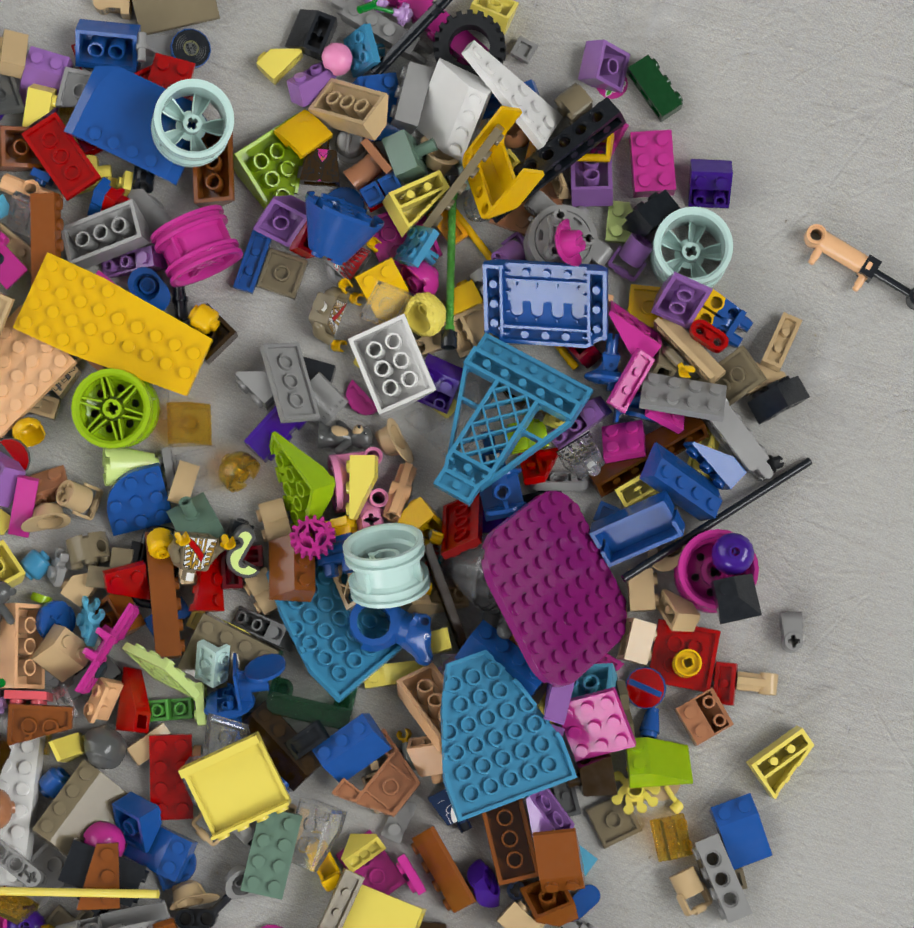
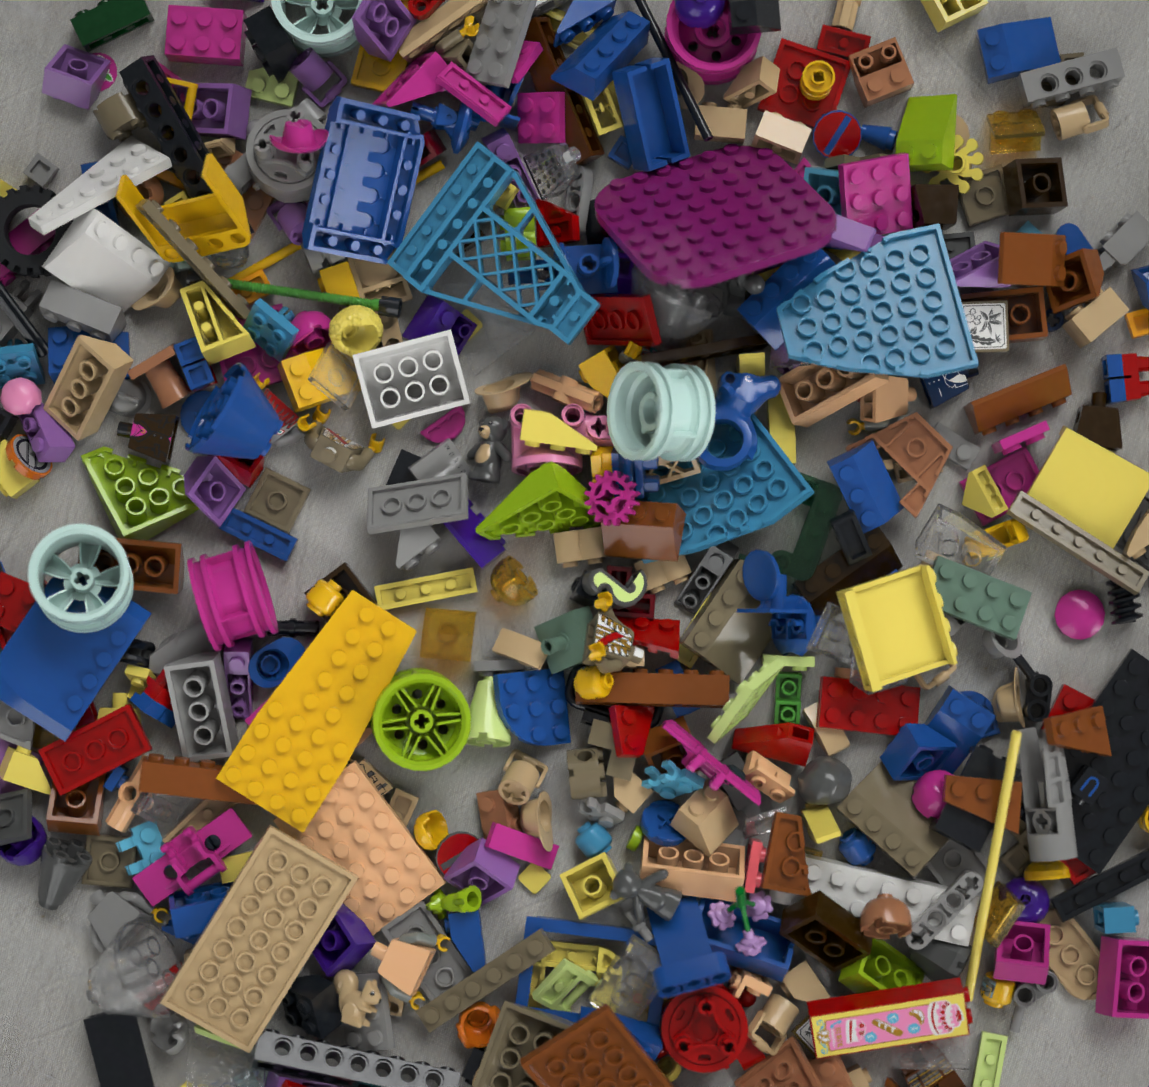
camera: 80 degrees left, 5 degrees up
(212, 663) = (744, 640): light aqua bracket -> none
(224, 401) = (426, 589): none -> light yellow plate
(287, 69) = (26, 462): none -> tile
(303, 133) = (108, 450): yellow slope -> none
(407, 155) = (156, 326): sand green brick -> none
(484, 883) = (1040, 354): dark purple hat -> none
(499, 829) = (988, 325): none -> tile
(625, 859) = (1035, 186): none -> dark brown brick
(676, 806) = (978, 119): light yellow hand -> none

